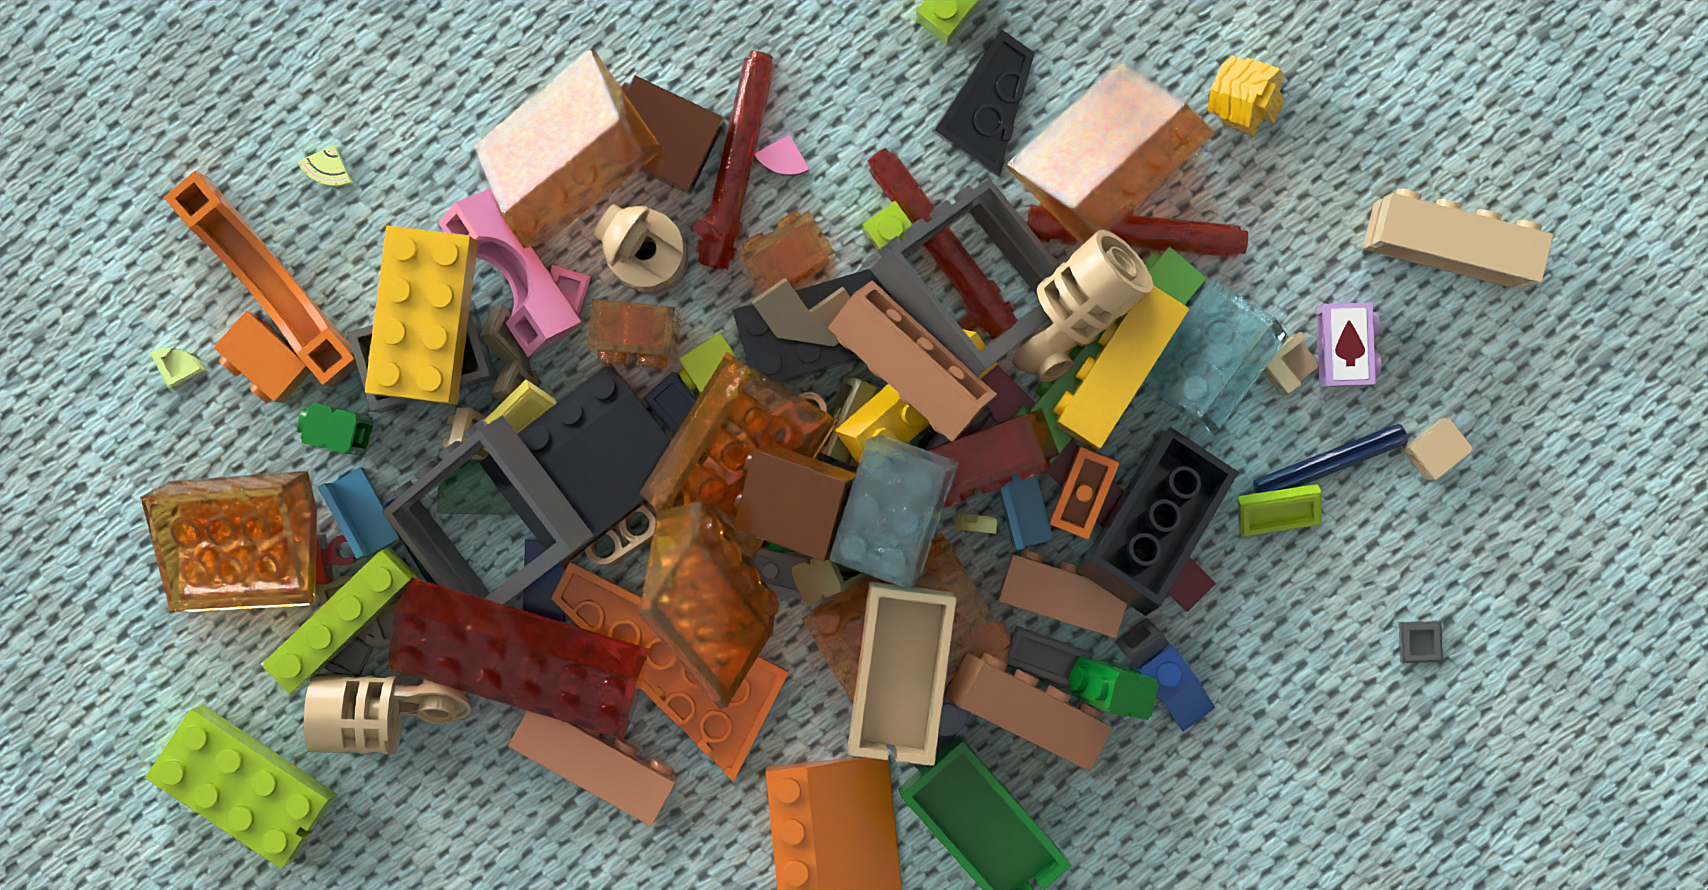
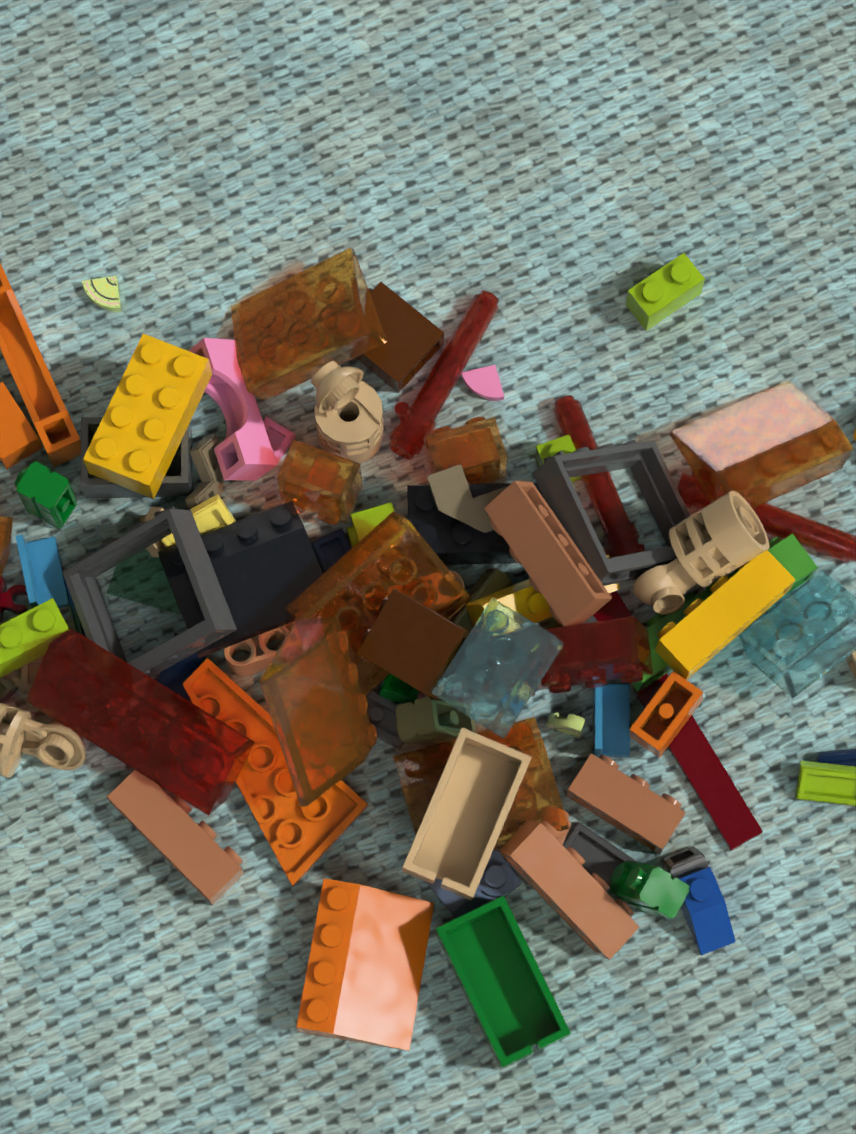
camera: 15 degrees right, 15 degrees down
(986, 105) = (667, 384): black wing -> none
(1158, 521) = (723, 756): black brick -> none

